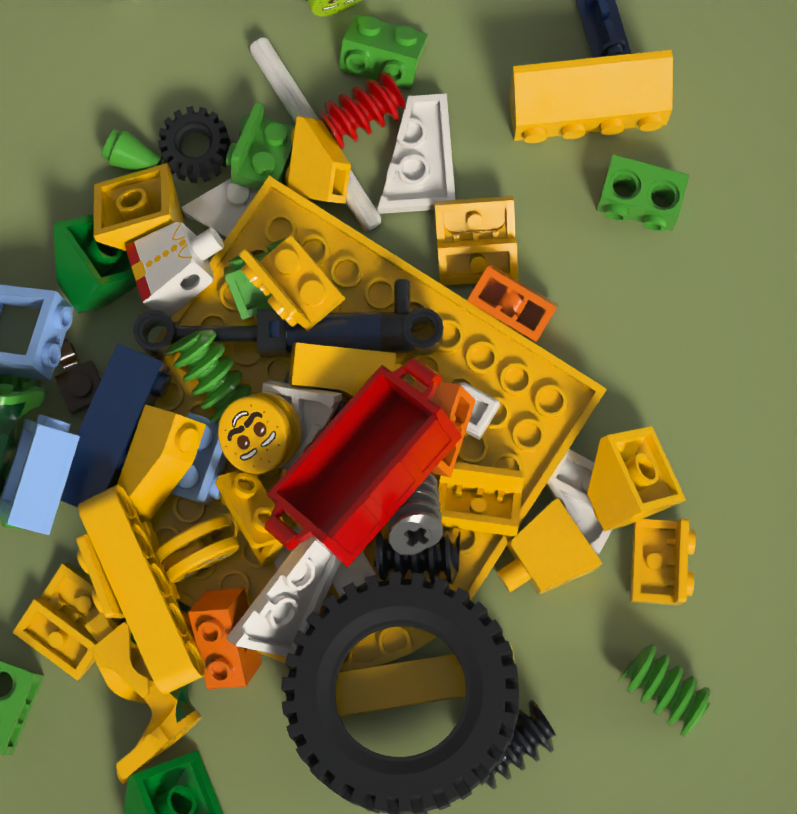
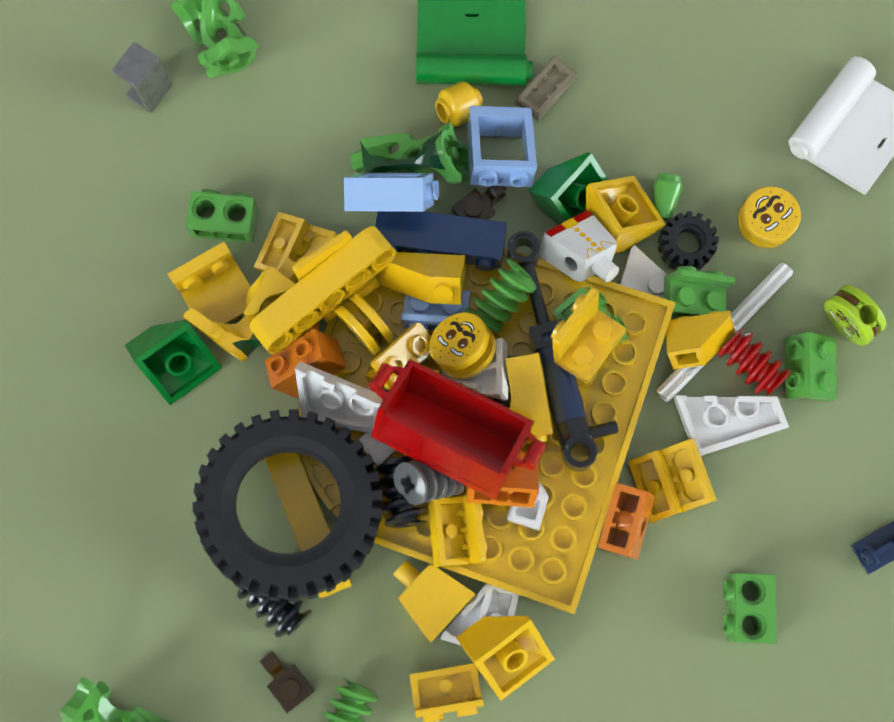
camera: 70 degrees right, 0 degrees up
(89, 735) = (213, 284): none -> yellow bracket
(190, 45) = (769, 217): none -> yellow head
(591, 96) = (821, 546): yellow slope -> none
(611, 750) = (289, 685): none -> dark brown plate

